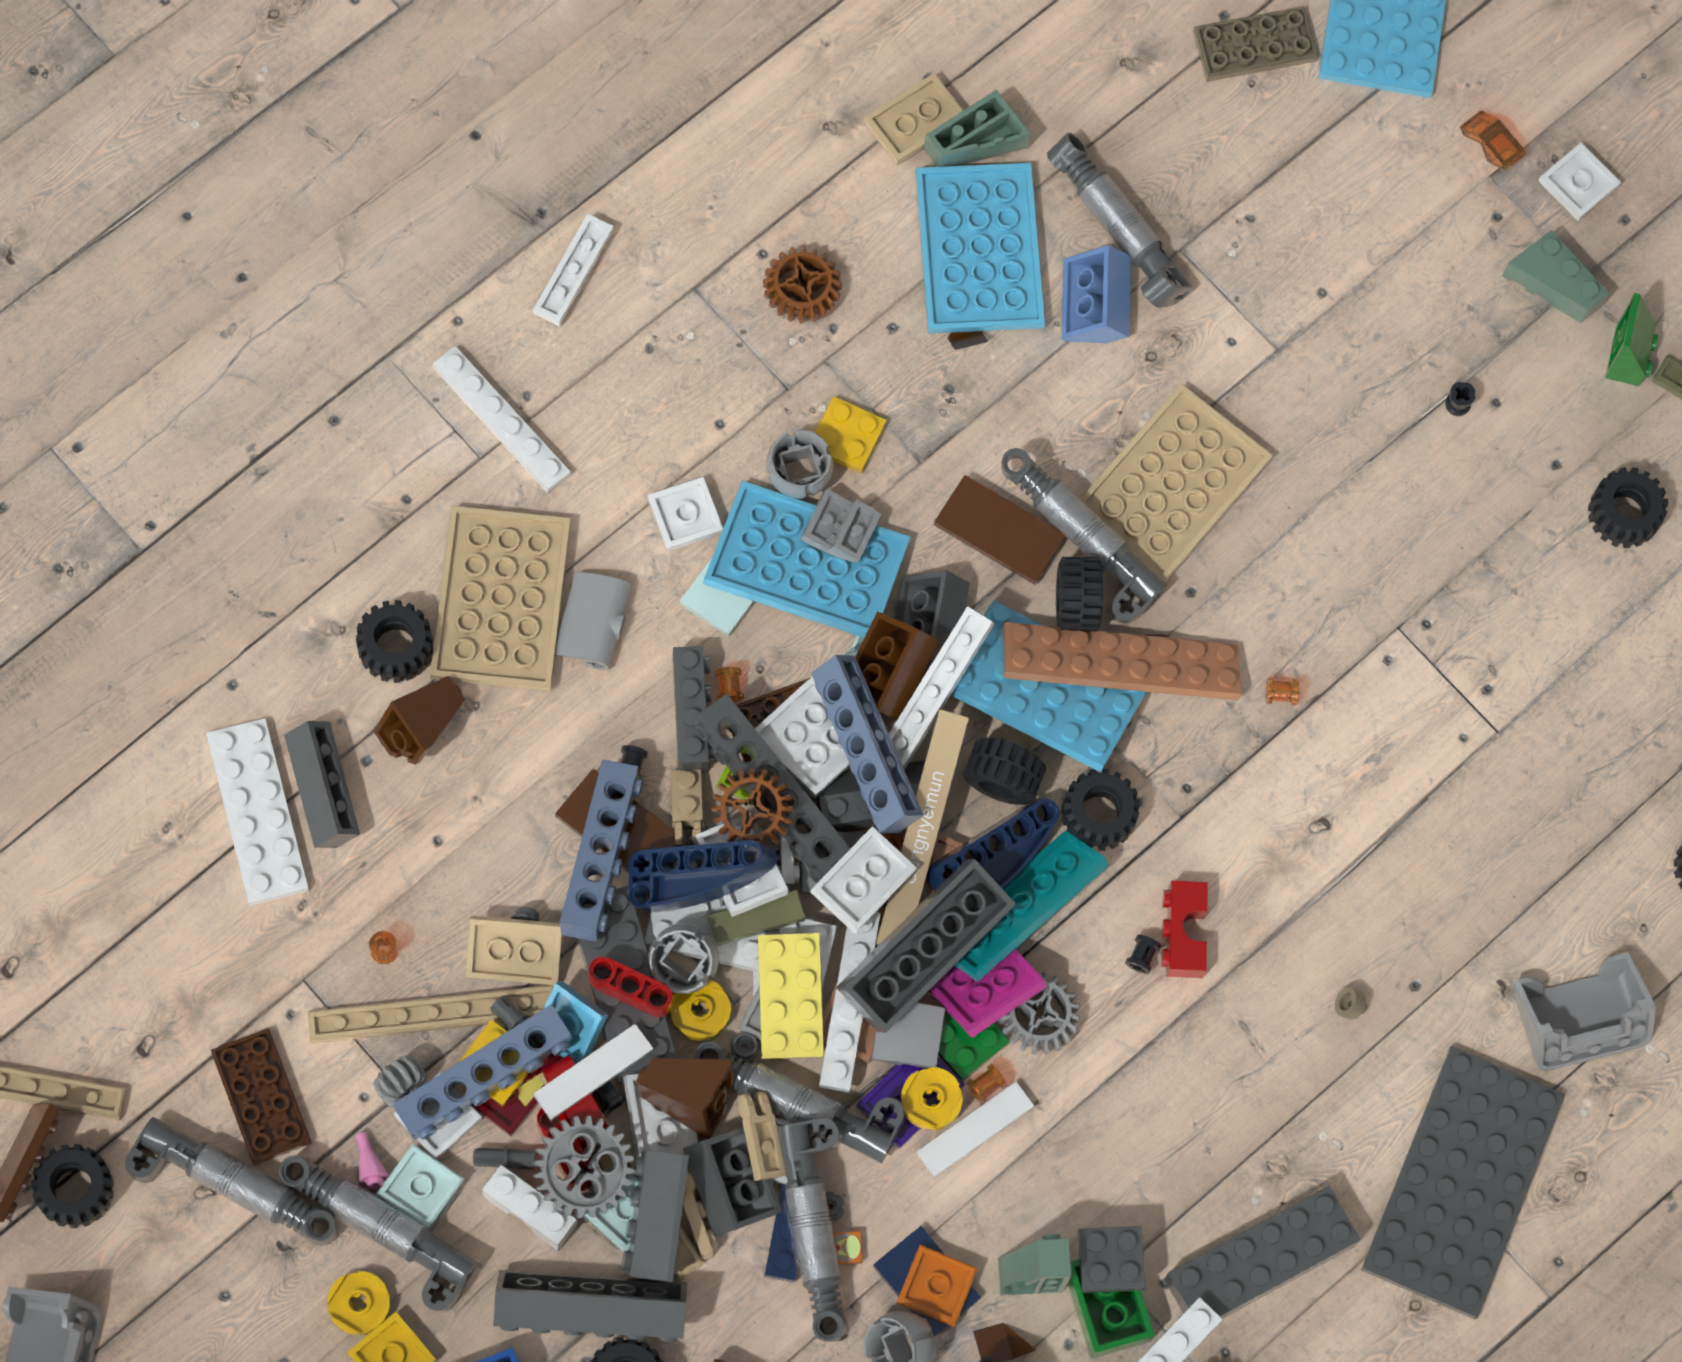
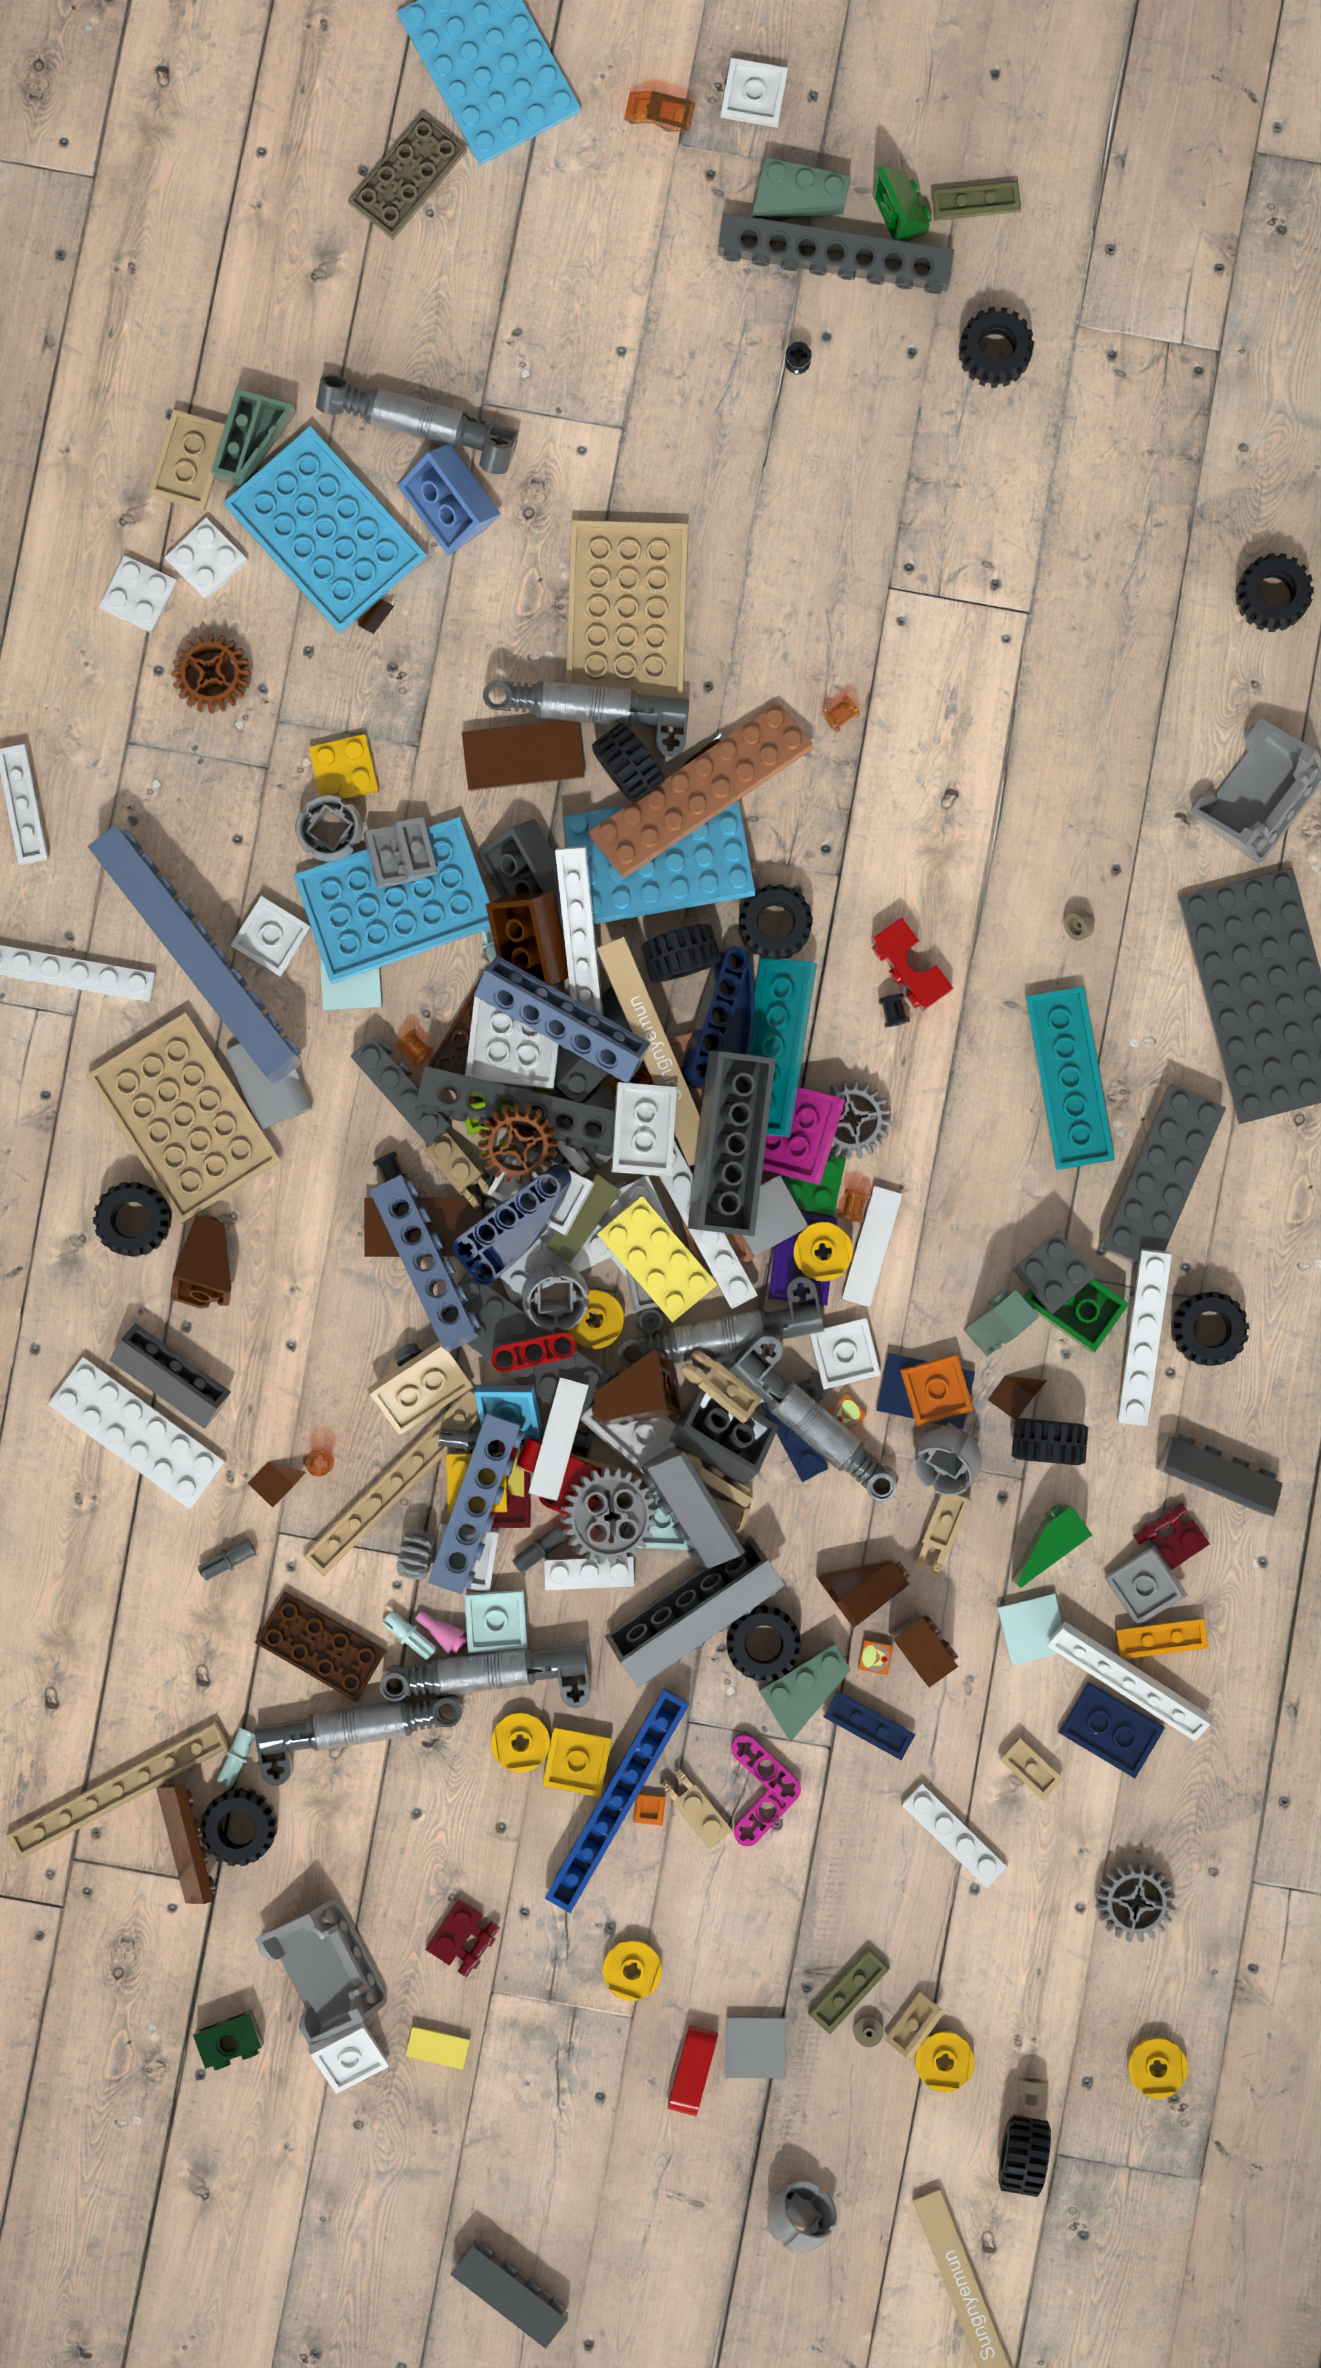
camera: 30 degrees left, 15 degrees up
(118, 1130) = (236, 1757): none -> light aqua axle
(244, 966) = (226, 1559): none -> dark grey axle
(334, 937) = (275, 1482): none -> reddish brown sticker
(340, 1143) = (409, 1635): none -> light aqua axle
(617, 478) = (191, 949): none -> sand blue brick
(794, 186) = (138, 594): none -> white plate
(868, 200) = (206, 559): none -> white plate
(883, 1197) = (845, 1354): none -> white plate
(1246, 1121) = (1069, 1078): none -> teal plate
(1549, 328) = (823, 241): none -> dark grey brick

